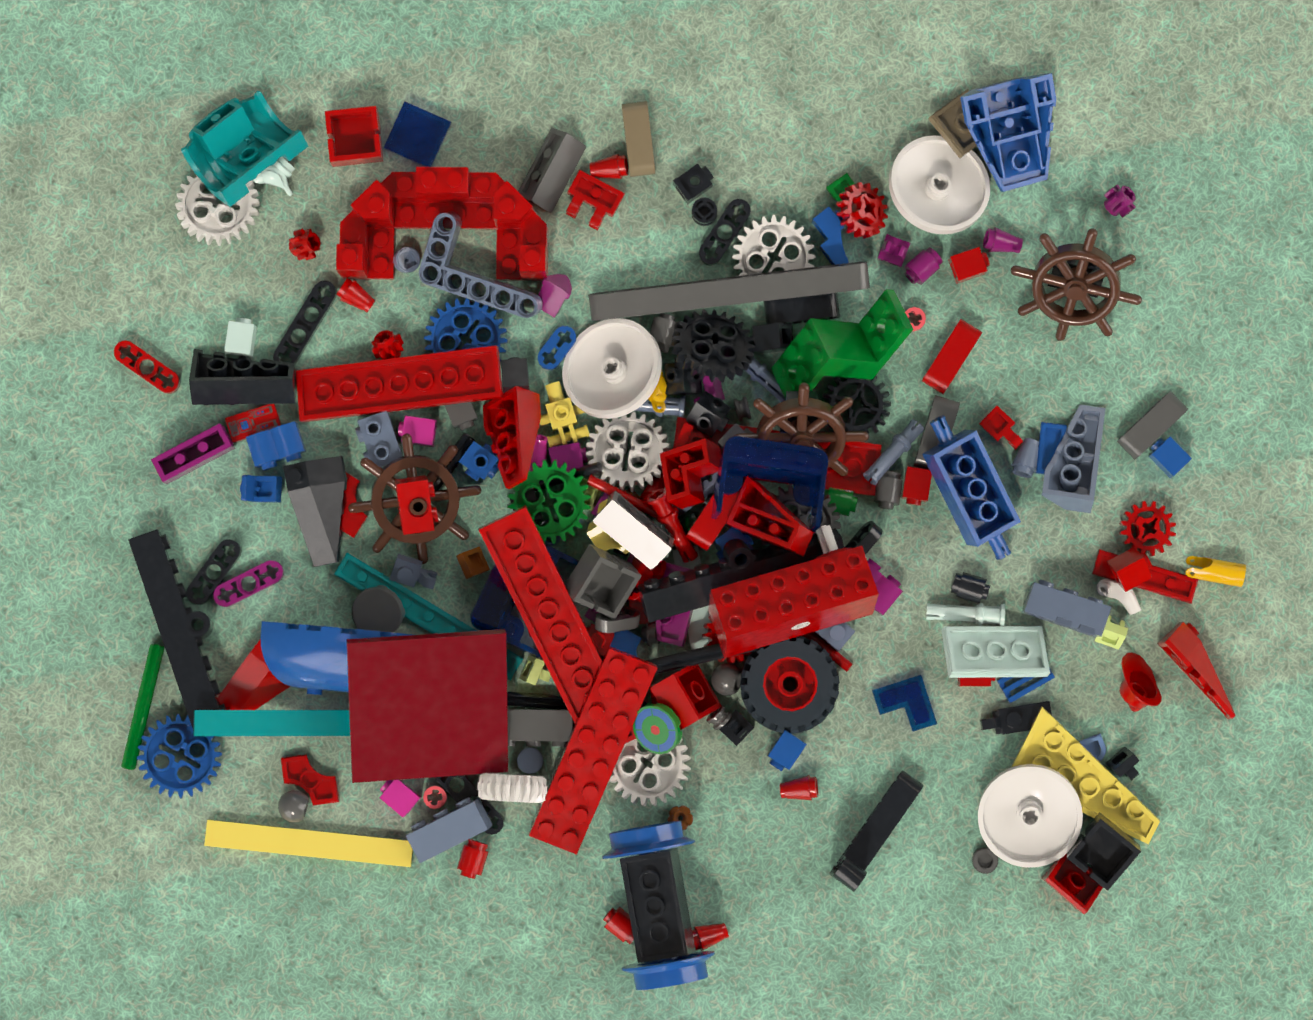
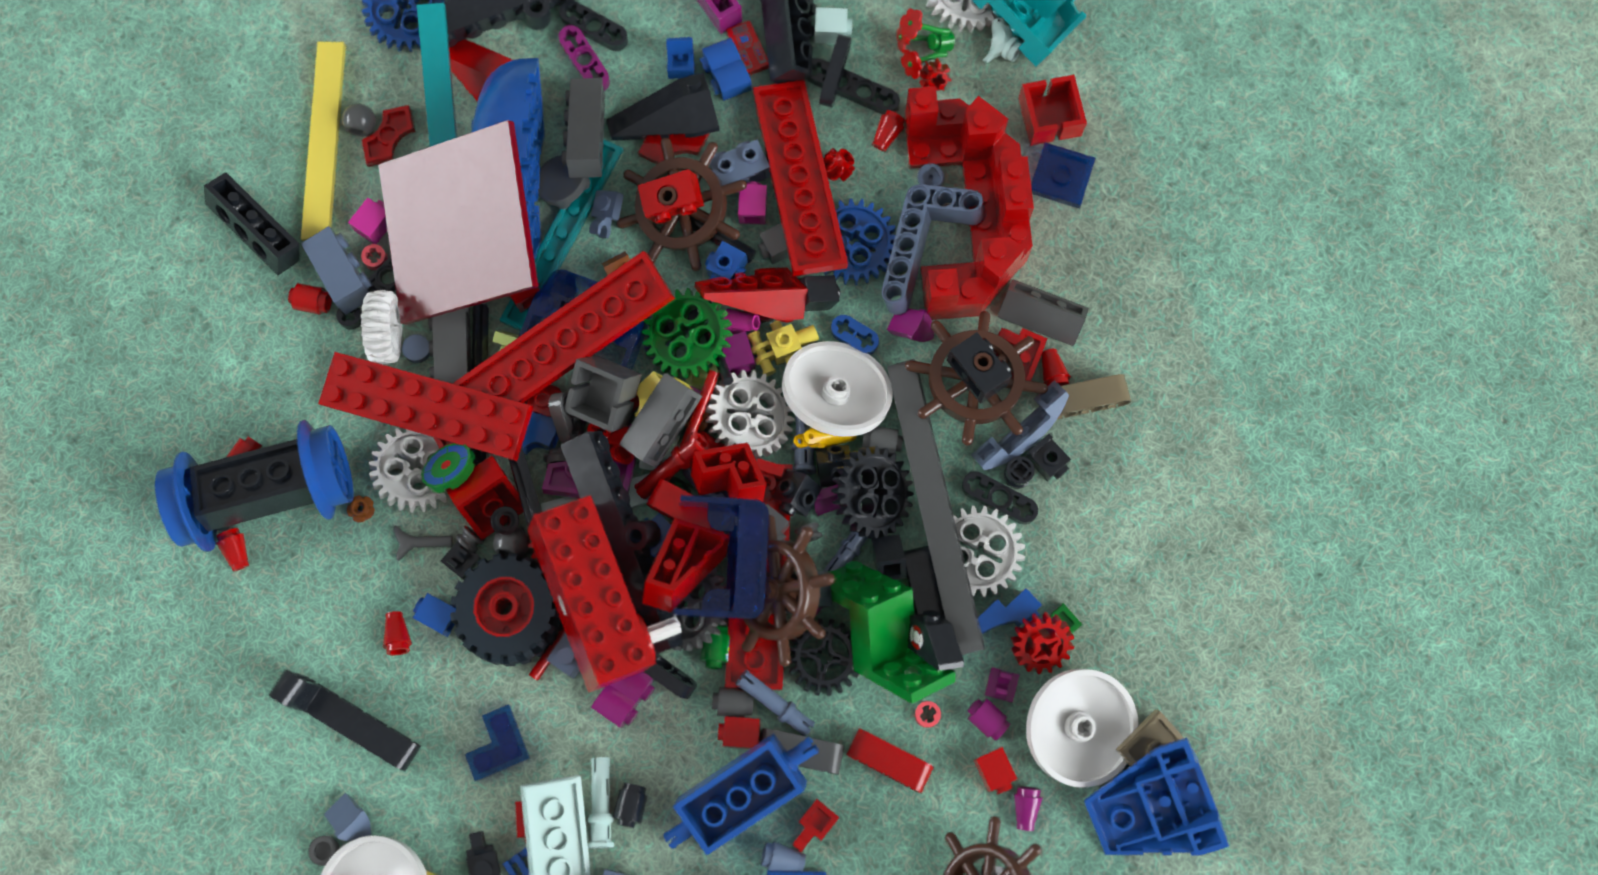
camera: 85 degrees right, 10 degrees down
(262, 259) = (940, 41): none -> plant
(292, 338) = (835, 70): none -> black beam
(329, 584) = (585, 128): none -> dark grey brick
(393, 911) = (251, 223): none -> black brick
(613, 237) = (981, 374): none -> reddish brown brick
(669, 200) = (1034, 428): none -> sand blue slope
(711, 674) = (513, 520): none -> black plate
(715, 775) = (408, 542): none -> dark grey piece
(857, 304) = (934, 640): none -> black slope
(960, 836) = (348, 819): none -> sand blue tile

